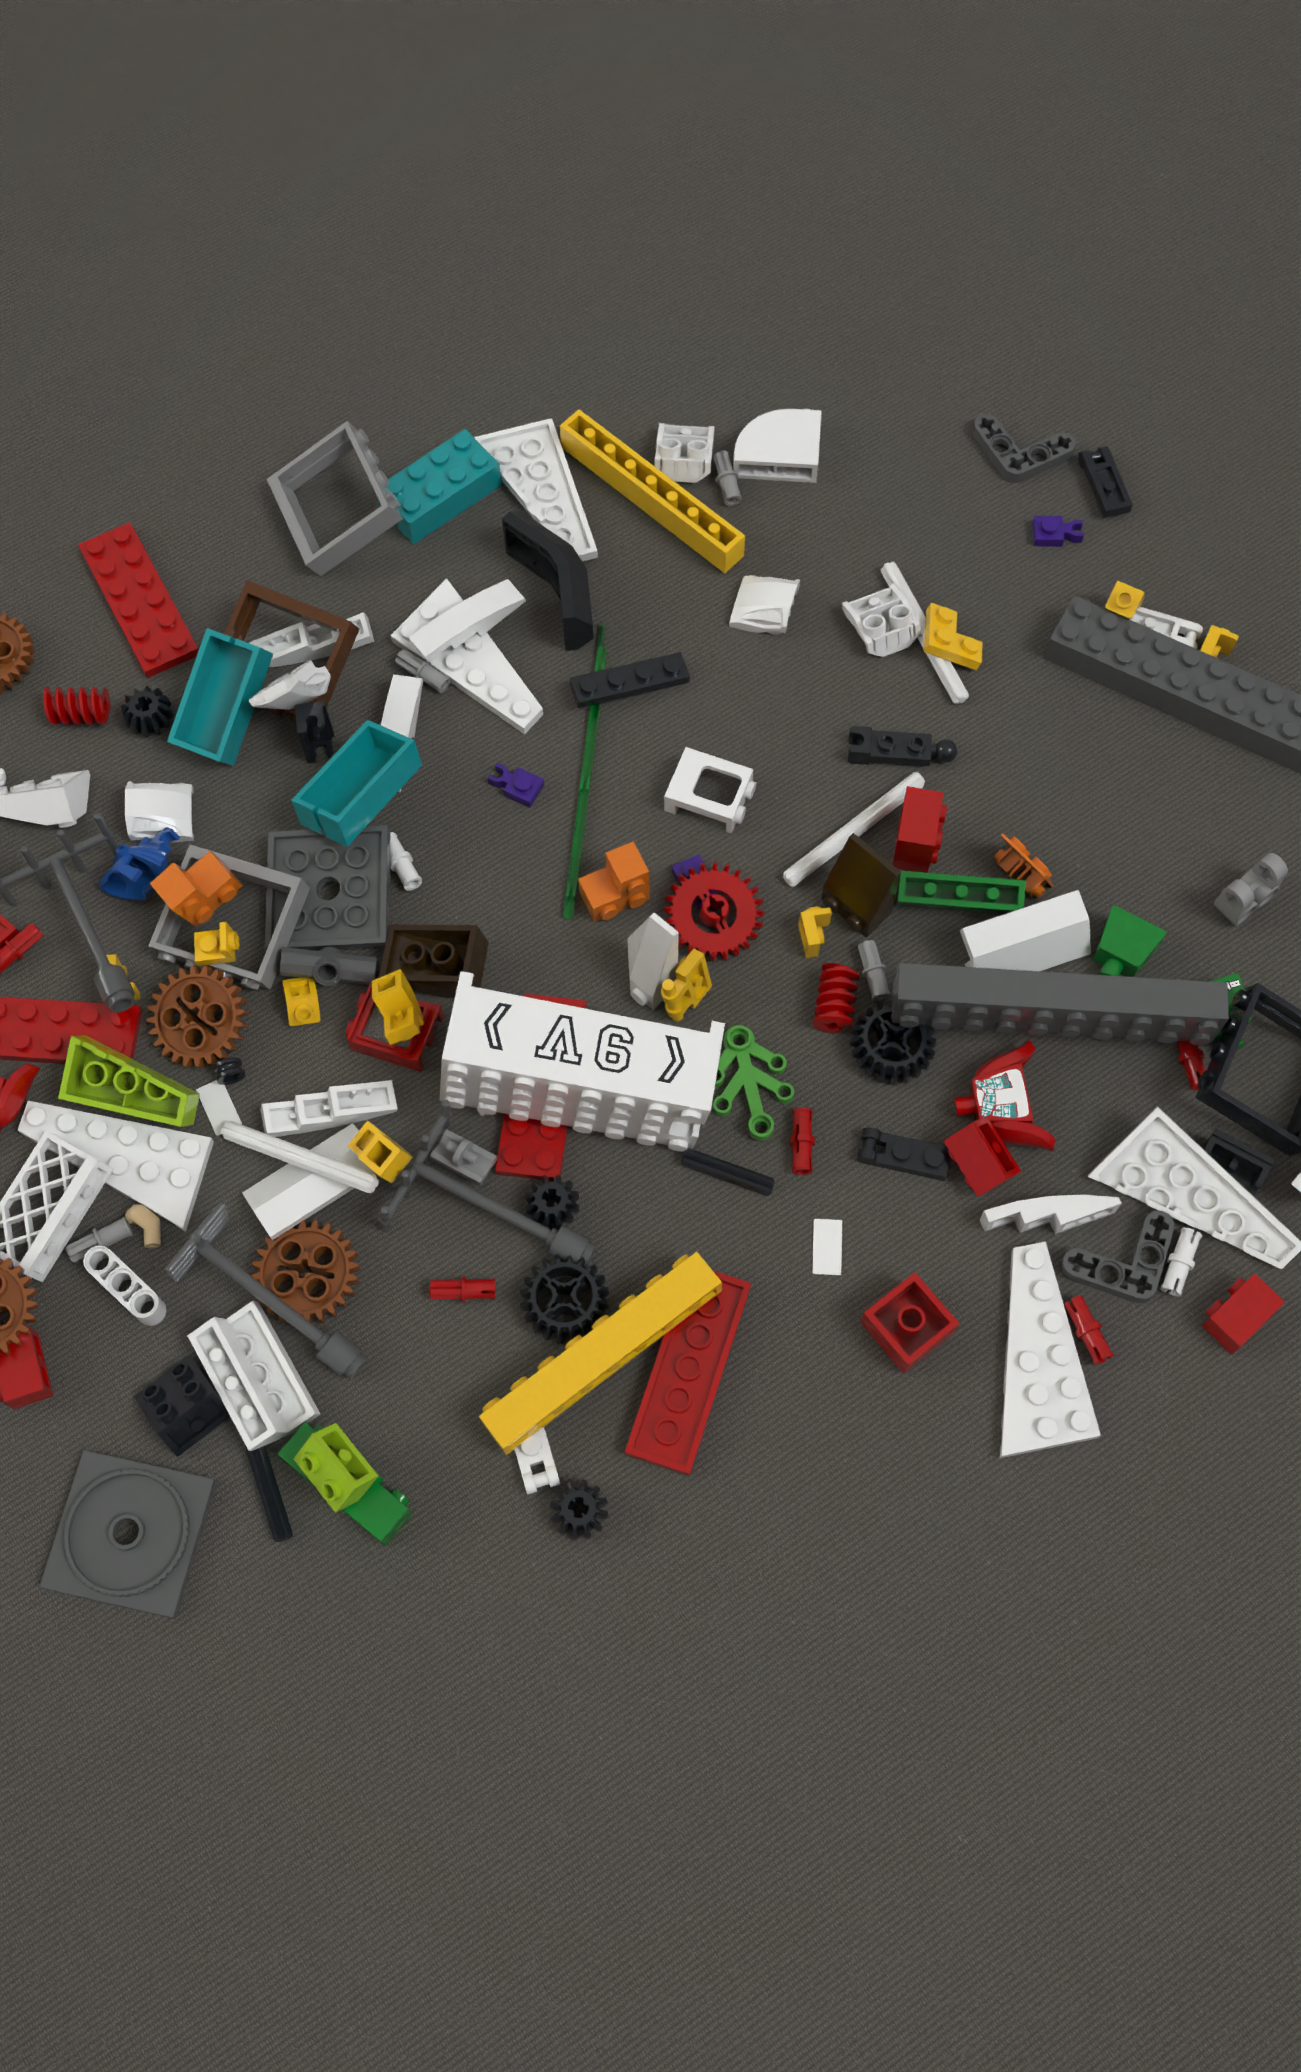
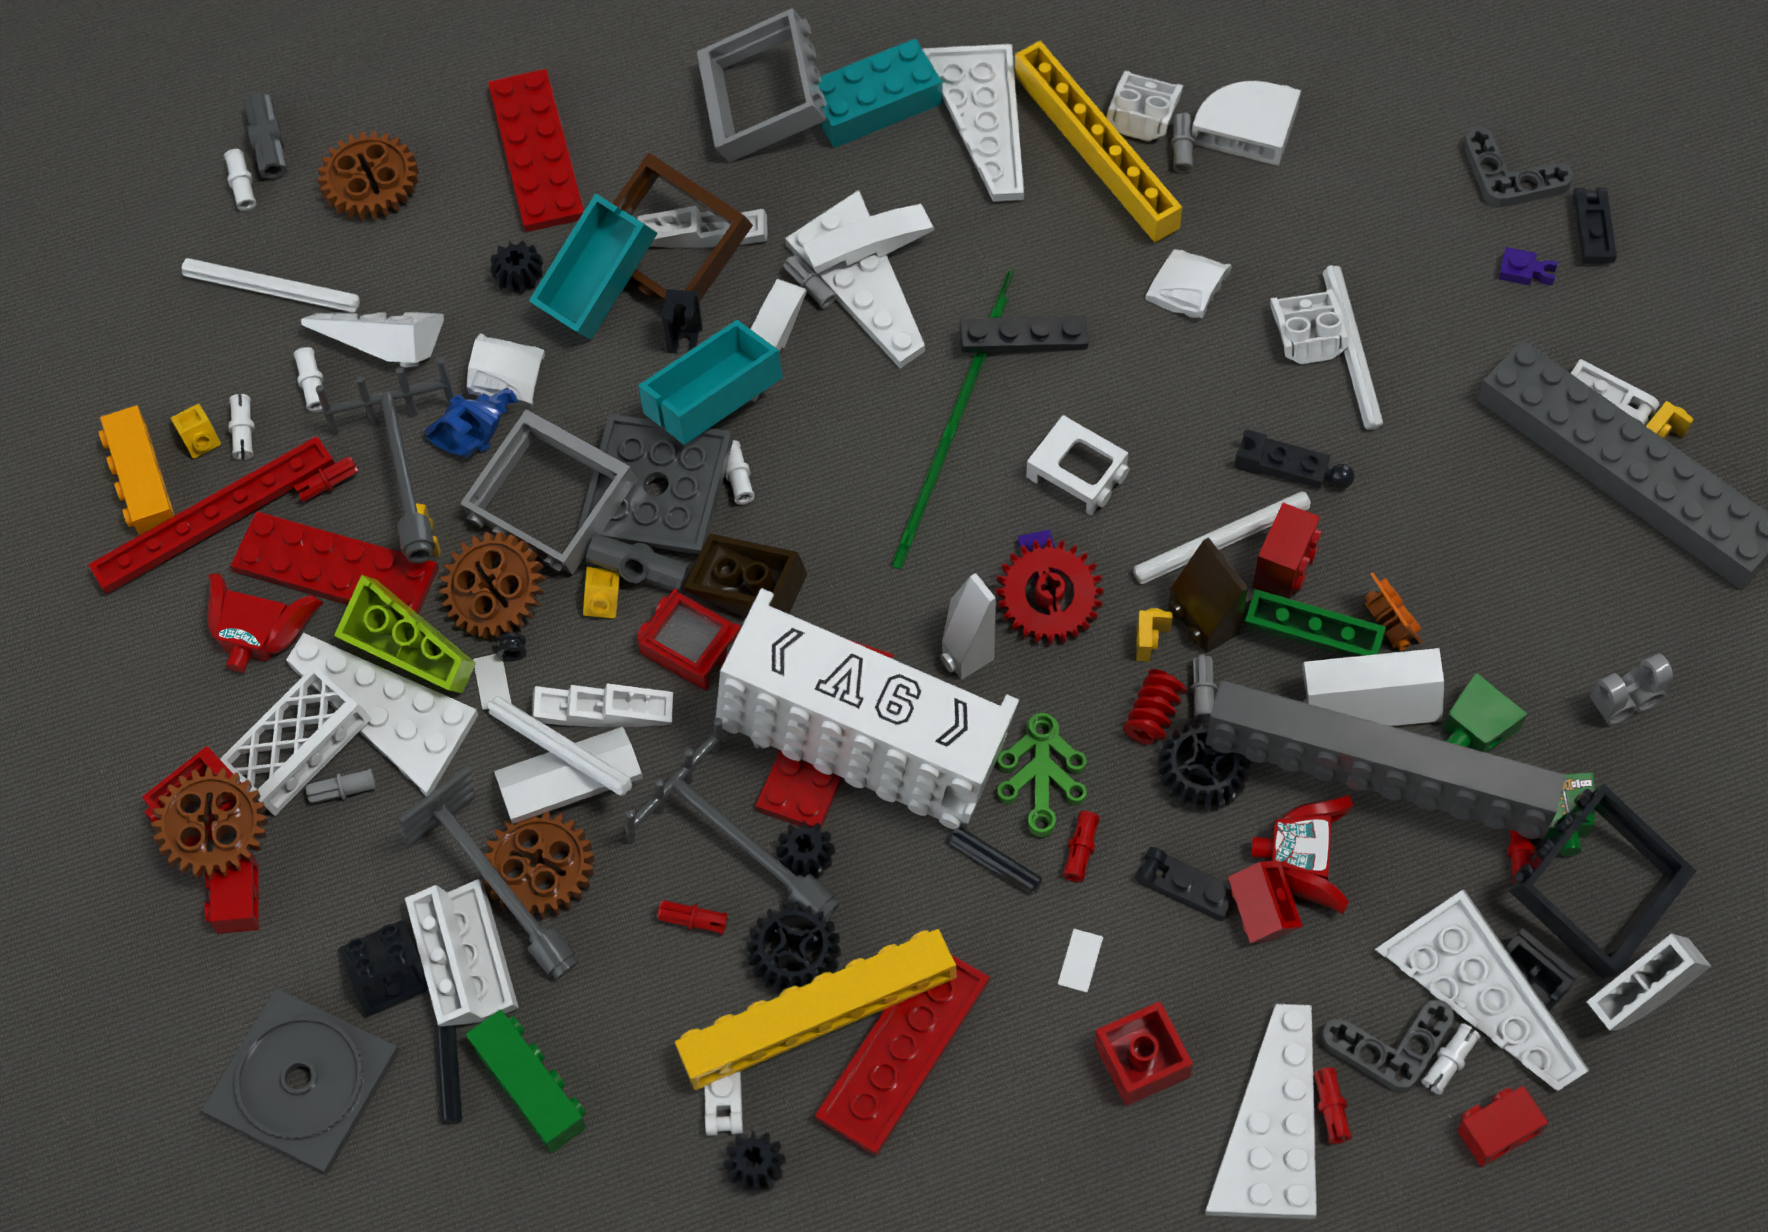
camera: 15 degrees right, 5 degrees down
(76, 708) = (446, 248): red piece -> none
(114, 1275) = (351, 822): white beam -> none
(149, 1221) = (394, 779): tan arm -> none
(198, 890) = (522, 456): orange brick -> none
(216, 945) = (527, 517): yellow bracket -> none
(299, 687) = (675, 272): white slope -> none
(335, 1467) = (519, 1057): lime brick -> none
(379, 1152) = (640, 757): yellow brick -> none
(398, 1006) = (696, 616): yellow brick -> none
(463, 1157) = (726, 784): light grey hips -> none
(520, 786) = (880, 420): dark purple plate -> none
(557, 565) = (978, 199): black piece -> none
(618, 885) = (954, 544): orange brick -> none
(689, 987) = (1002, 662): yellow plate -> none
(945, 643) = (1372, 363): yellow plate -> none
(1060, 1211) = (1337, 978): white slope -> none
(1125, 600) = (1575, 355): yellow bracket -> none

